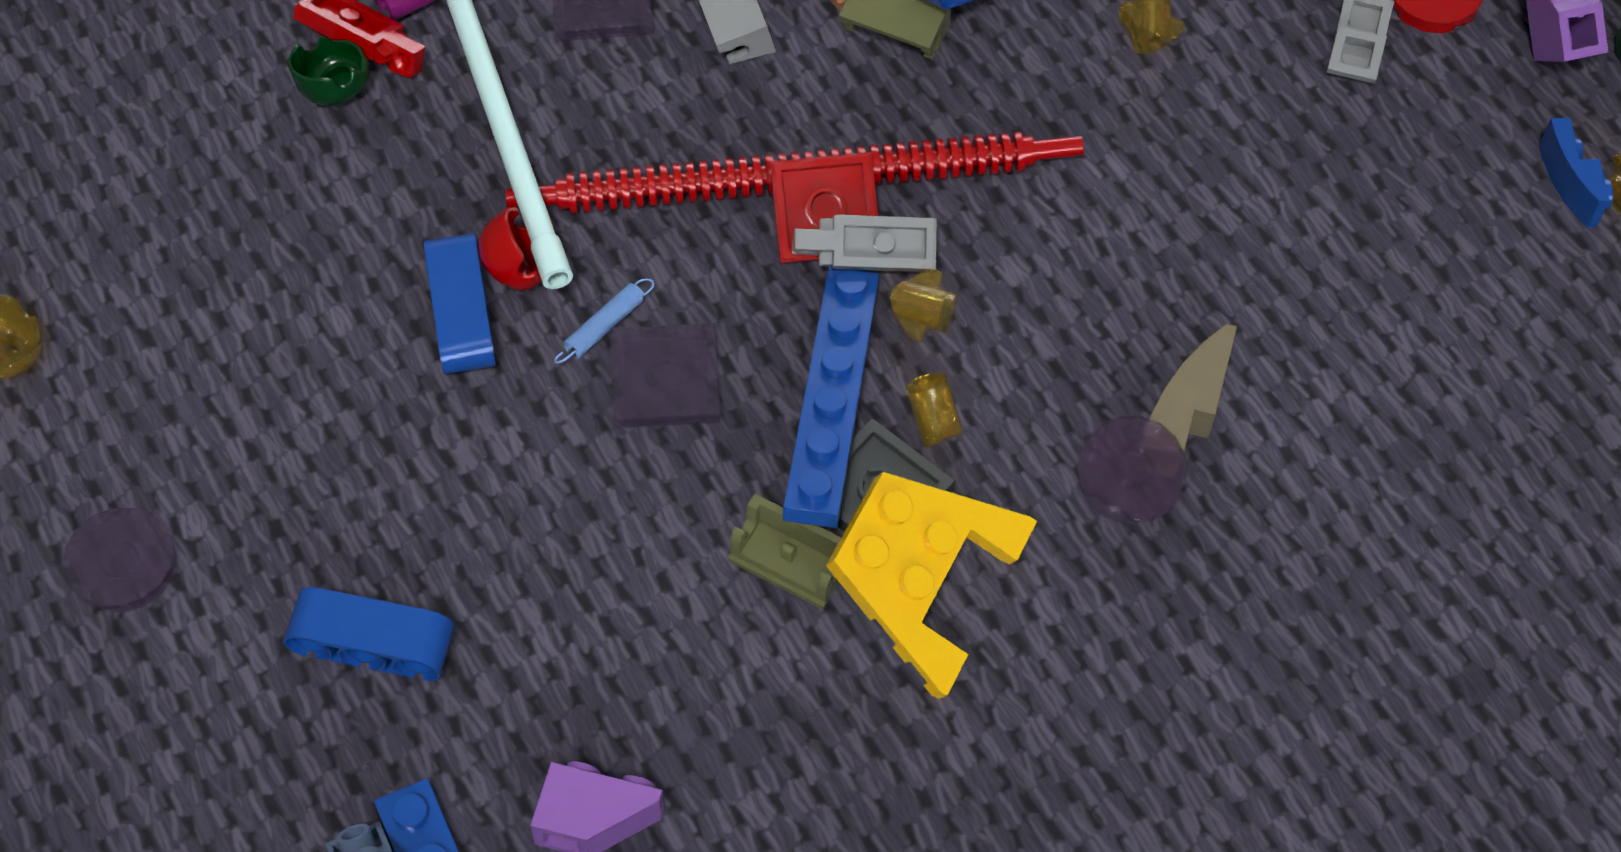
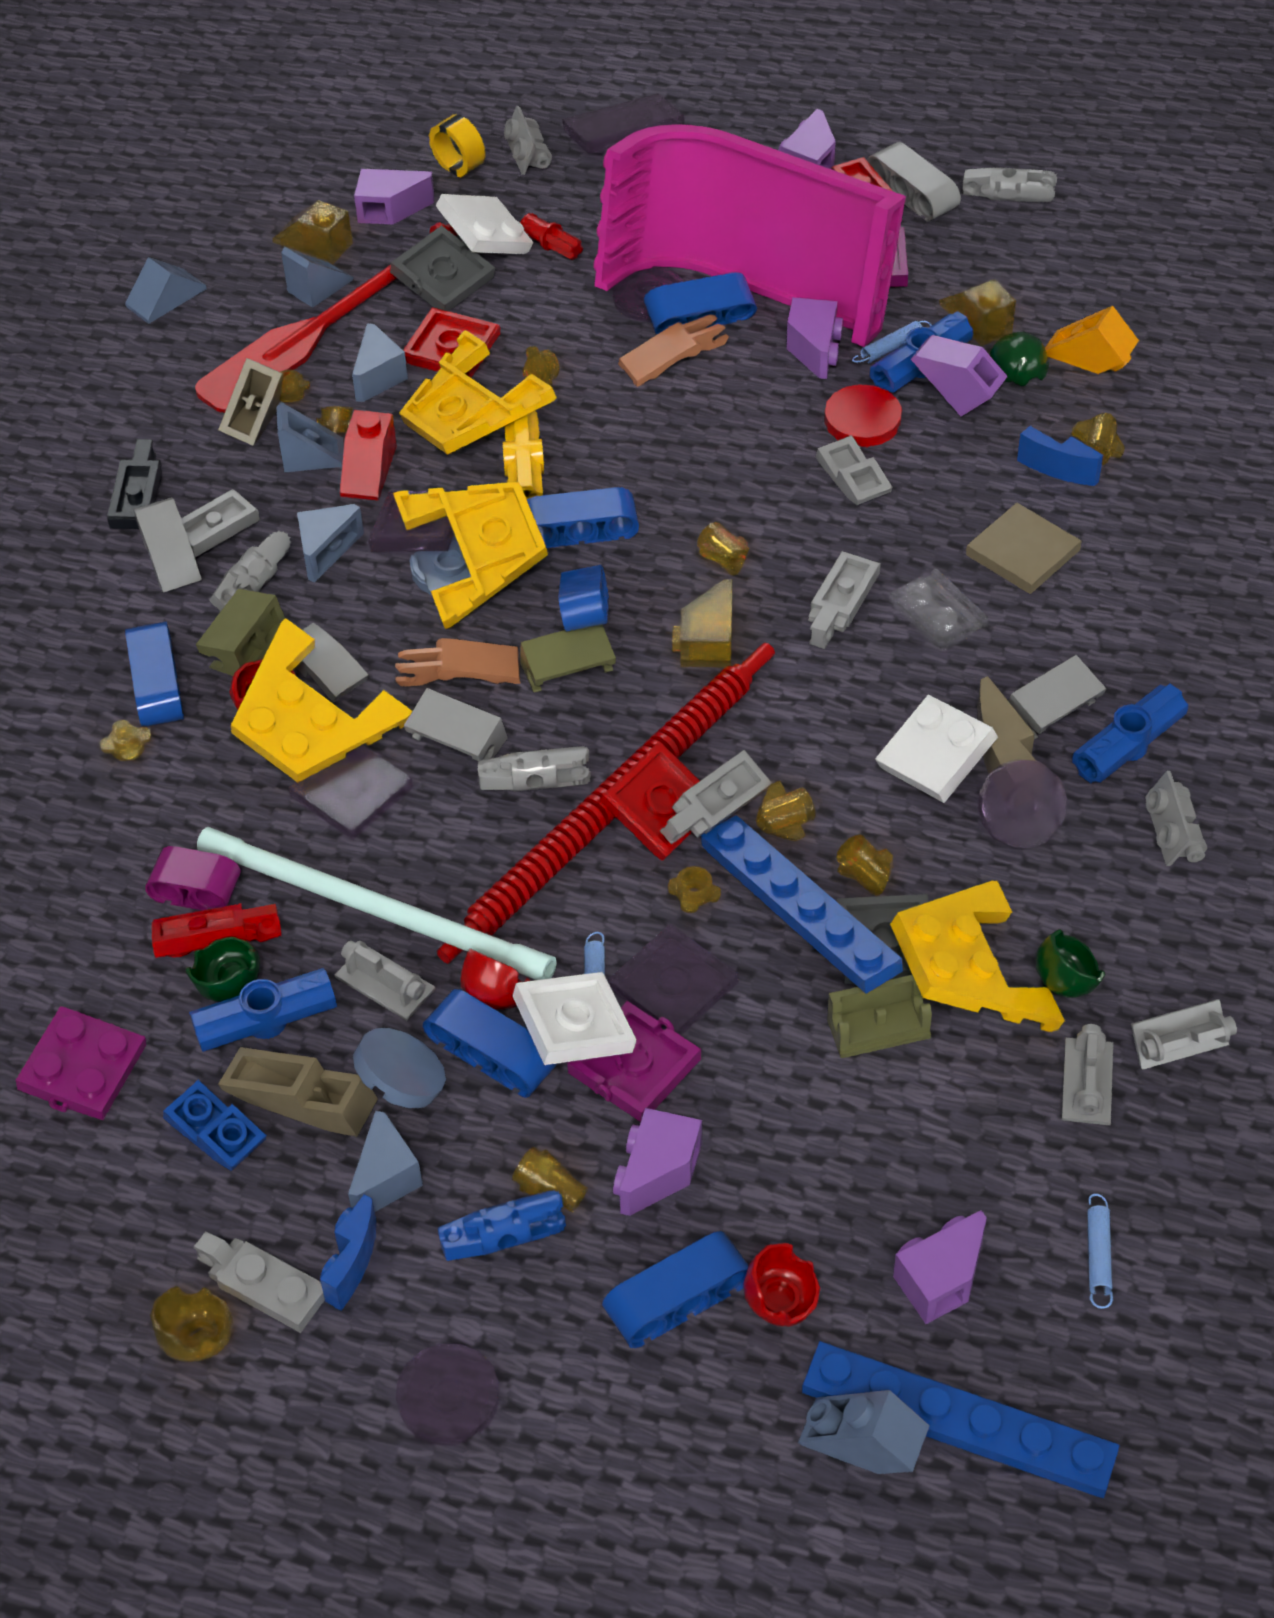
camera: 40 degrees left, 10 degrees down
(92, 350) = (261, 1280): none -> light grey hinge
(156, 61) = (80, 1063): none -> magenta plate
(186, 376) = (355, 1241): none -> blue slope
(192, 194) = (213, 1127): none -> blue slope
(265, 335) = (385, 1166): none -> sand blue slope
(279, 219) = (300, 1090): none -> dark tan slope
(300, 463) = (503, 1226): none -> blue hinge
(342, 133) = (284, 1002): none -> blue piece
(362, 263) = (399, 1067): none -> sand blue tile
(375, 453) = (543, 1172): none -> clear yellow cone
(442, 179) = (383, 980): none -> light grey hinge
(443, 704) = (781, 1286): none -> red hair
(472, 516) = (660, 1159): none -> medium lavender slope
(528, 336) = (573, 1018): none -> white plate
(552, 416) = (645, 1075): none -> magenta plate
(757, 97) = (535, 769): none -> light grey hinge
(774, 297) = (694, 878): none -> clear yellow plate
(907, 764) = (1088, 1077): none -> light grey hinge
(1003, 649) = (1067, 966): none -> dark green hair
(1033, 797) = (1182, 1033): none -> light grey hinge
(1048, 83) = (706, 629): none -> clear yellow slope
(1116, 355) = (936, 748): none -> white plate
(1204, 147) = (841, 596): none -> light grey hinge
(1252, 616) = (1170, 812): none -> light grey hinge
(1284, 230) = (938, 610): none -> clear plate
(1287, 395) = (1056, 694): none -> light grey hinge
(1351, 488) = (1130, 733): none -> blue piece
(1438, 234) = (1023, 548): none -> dark tan tile

